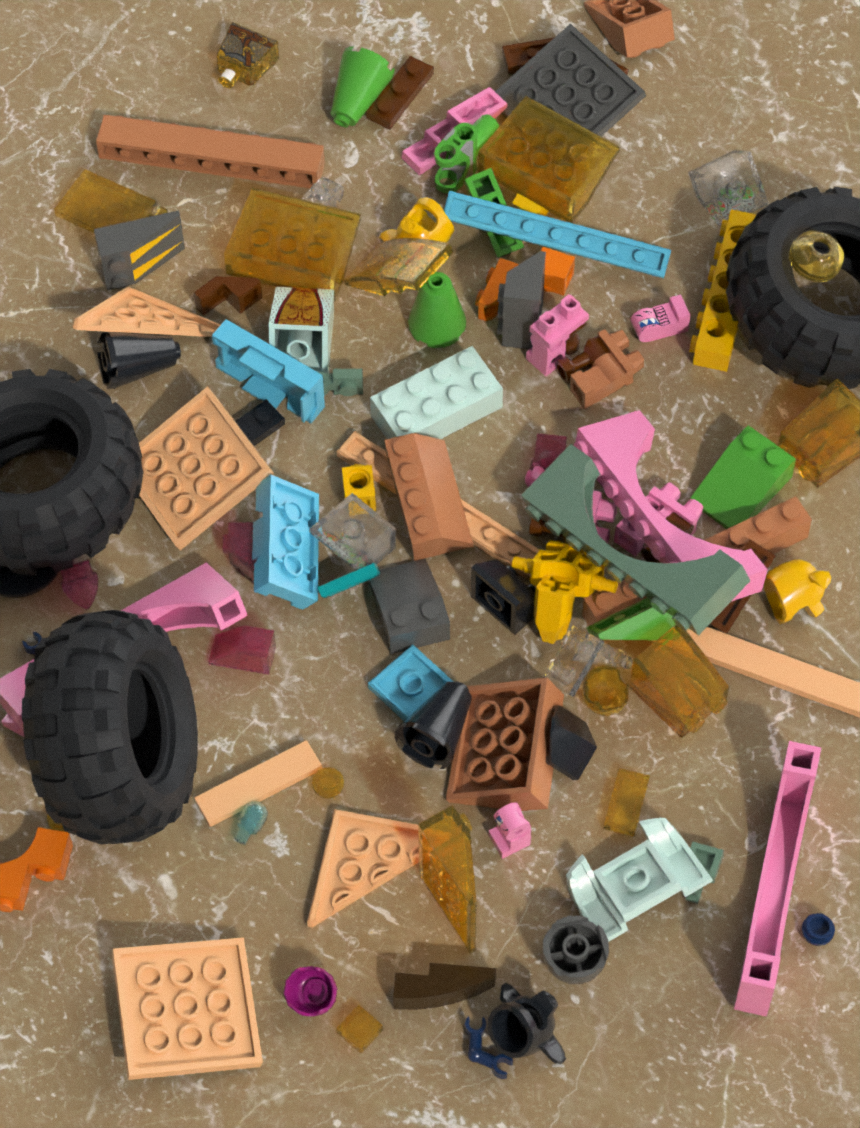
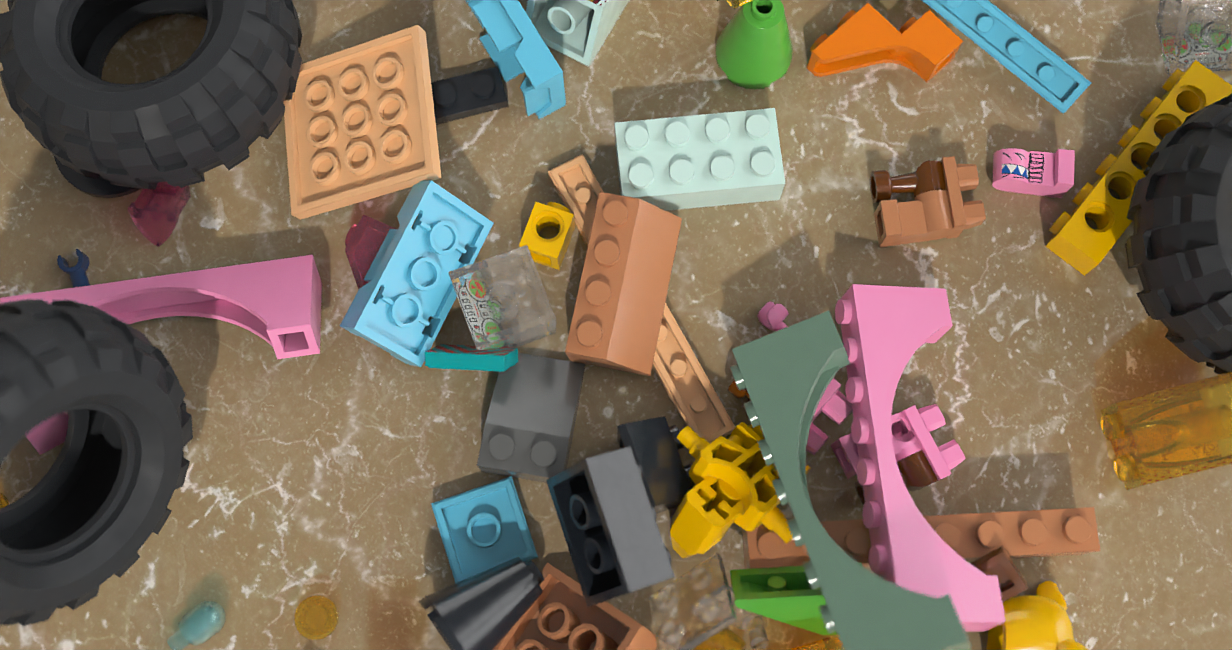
camera: 25 degrees right, 15 degrees up
(244, 649) = (306, 390): clear pink slope -> none
(258, 783) = (235, 576): light nougat tile -> none
(343, 382) = (599, 84): sand green plate -> none
(497, 627) = (610, 526): none -> brick
(521, 301) = (865, 76): dark grey slope -> none
(547, 450) = (806, 290): clear pink tile -> none
(556, 334) = (889, 138): bright pink hips -> none
(744, 478) = (1035, 443): bright green slope -> none

